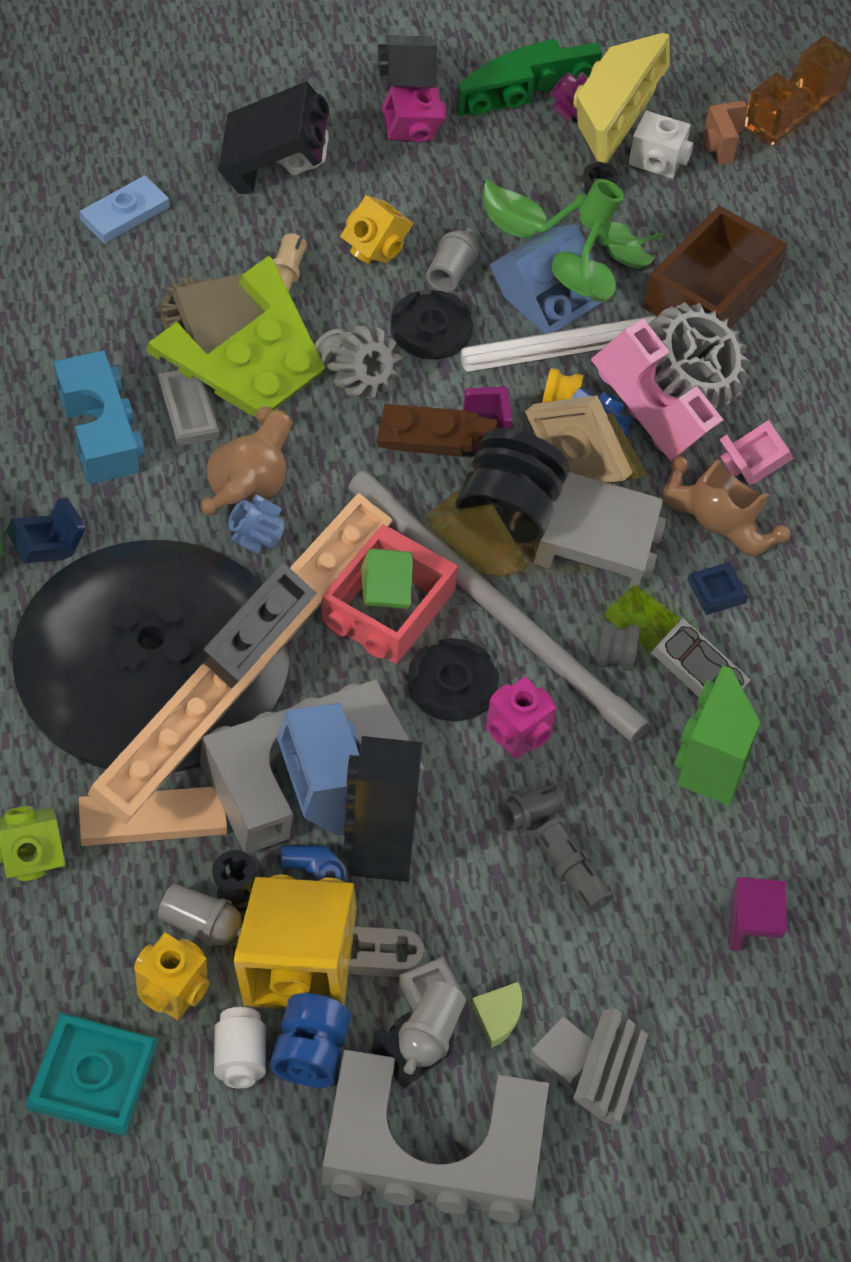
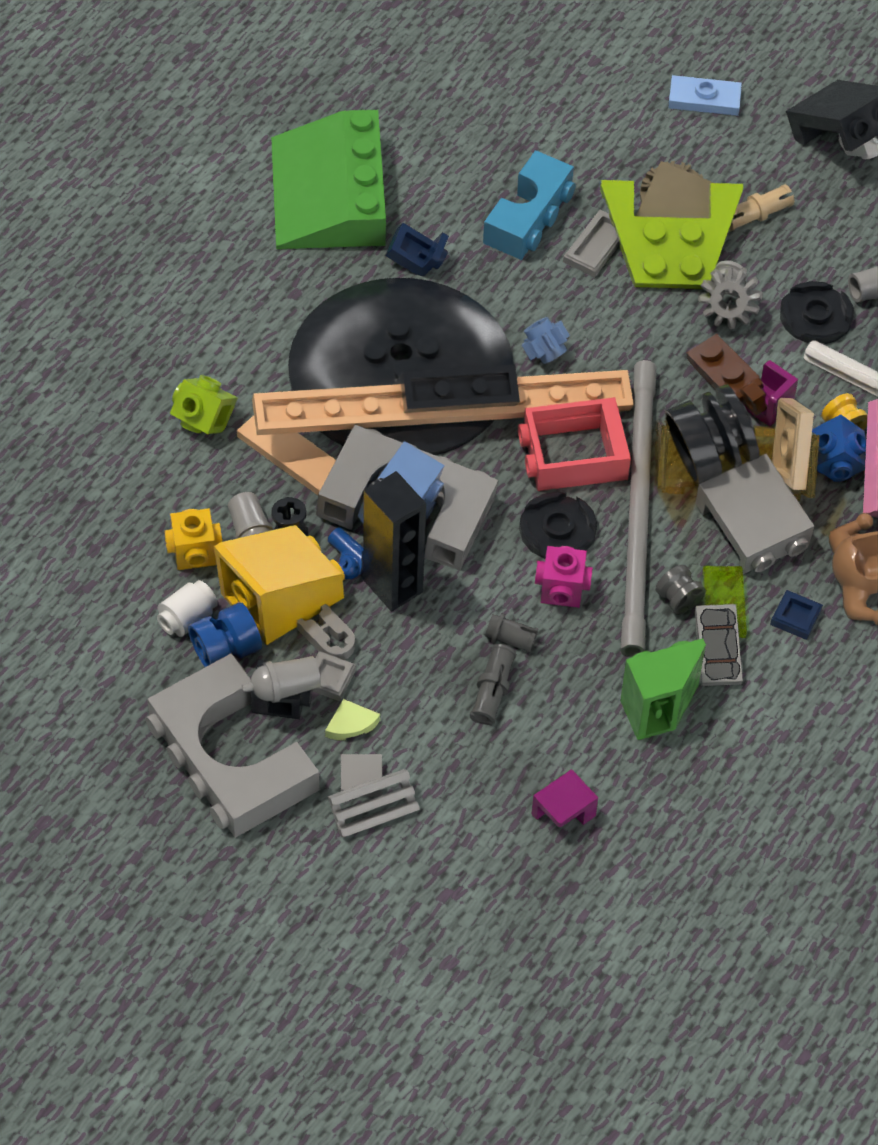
camera: 50 degrees right, 0 degrees up
(92, 1074) = (100, 555): teal tile -> none
(249, 463) = (584, 303): medium nougat piece -> none
(376, 230) = (845, 223): yellow brick -> none
(387, 578) = (571, 427): bright green slope -> none

